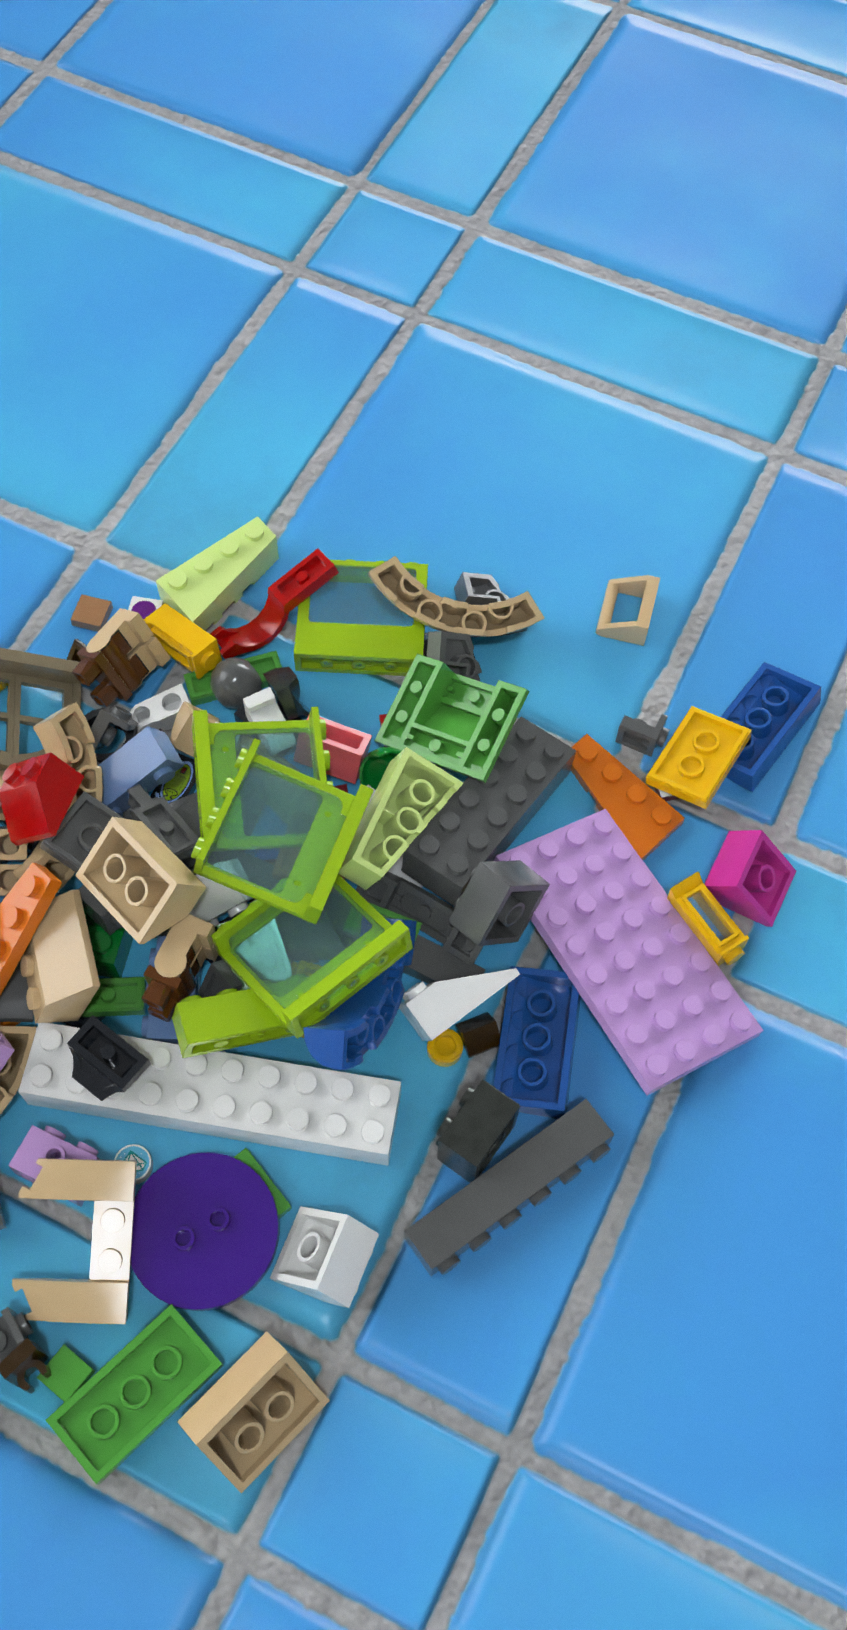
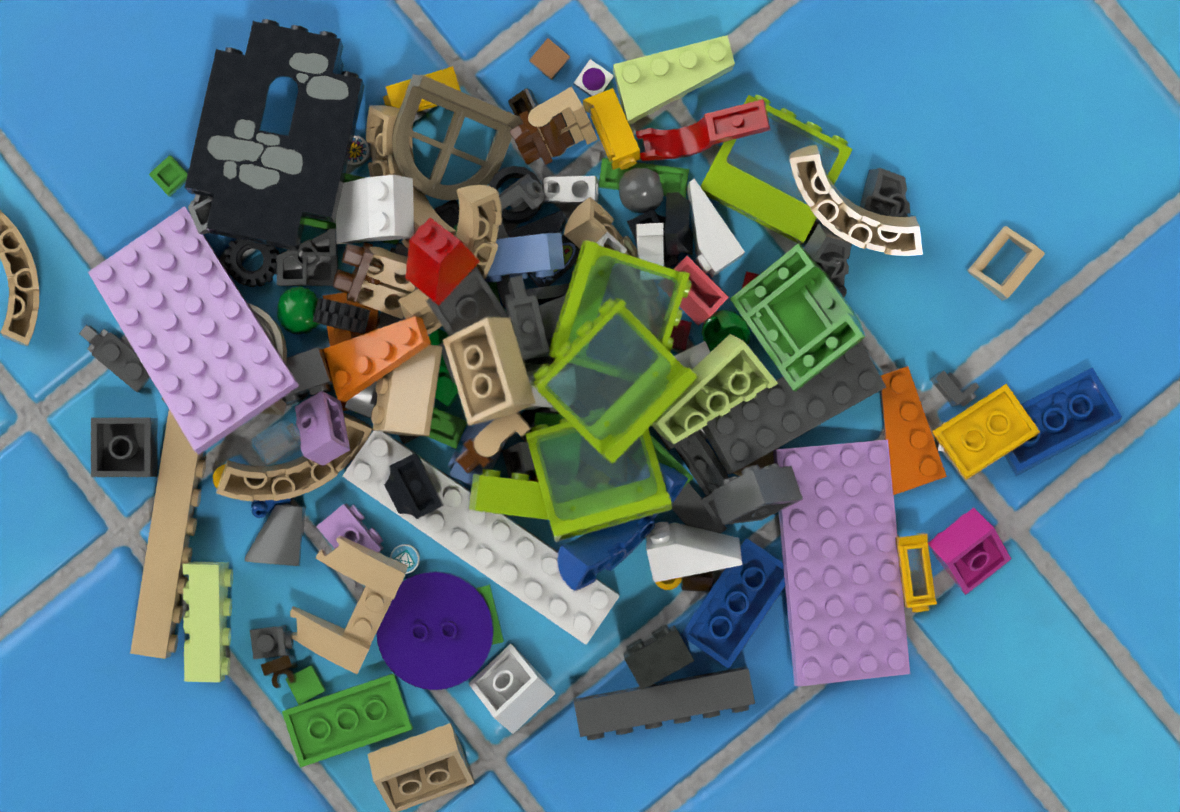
camera: 25 degrees right, 25 degrees up
(326, 683) = (713, 240): none -> white slope

